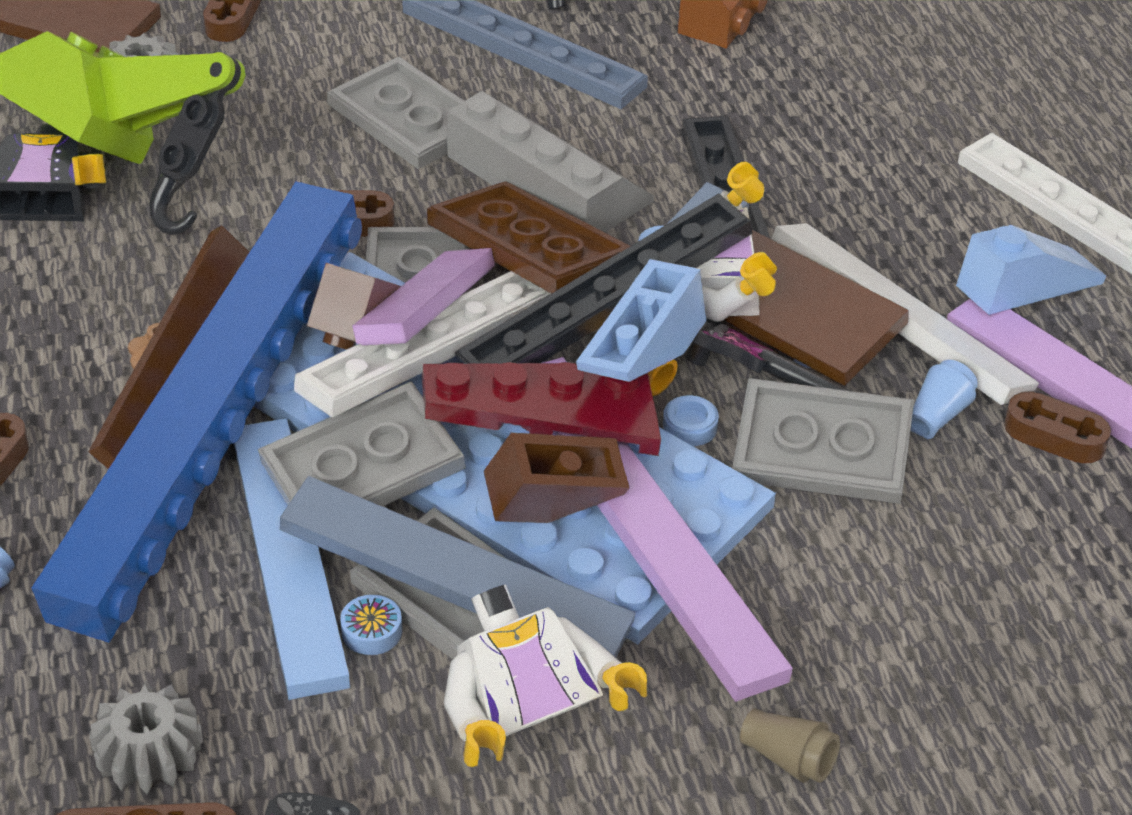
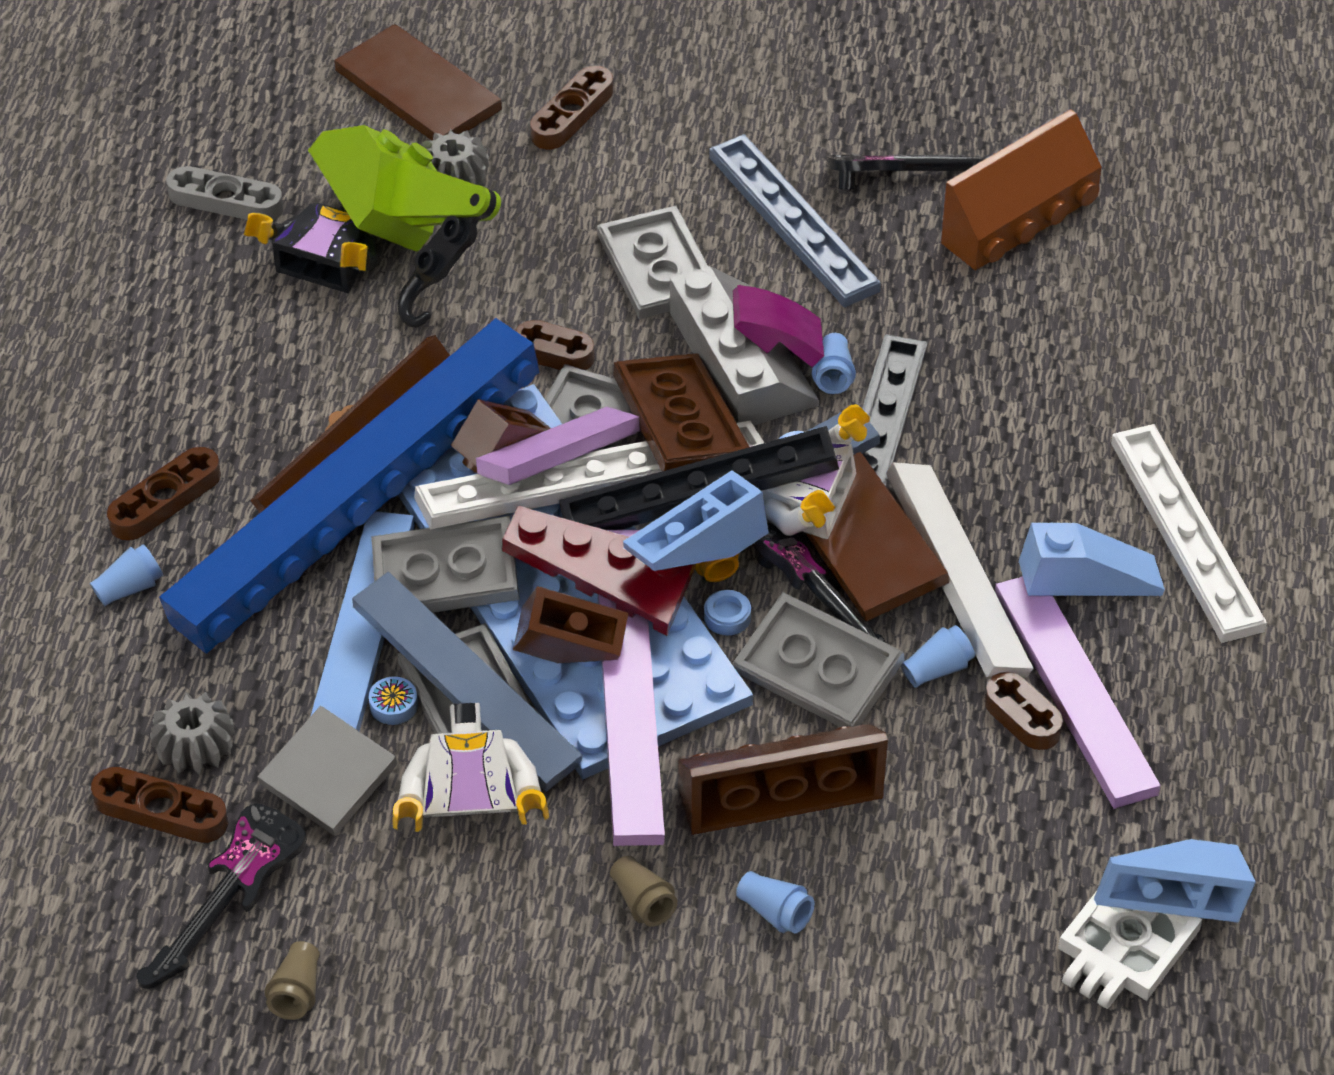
camera: 25 degrees right, 5 degrees up
(339, 728) = (327, 770): none -> light grey tile
(580, 128) = (774, 319): none -> magenta slope
(653, 159) = (836, 369): none -> light blue cone
(870, 566) = (783, 778): none -> reddish brown slope
(944, 704) = (779, 902): none -> light blue cone

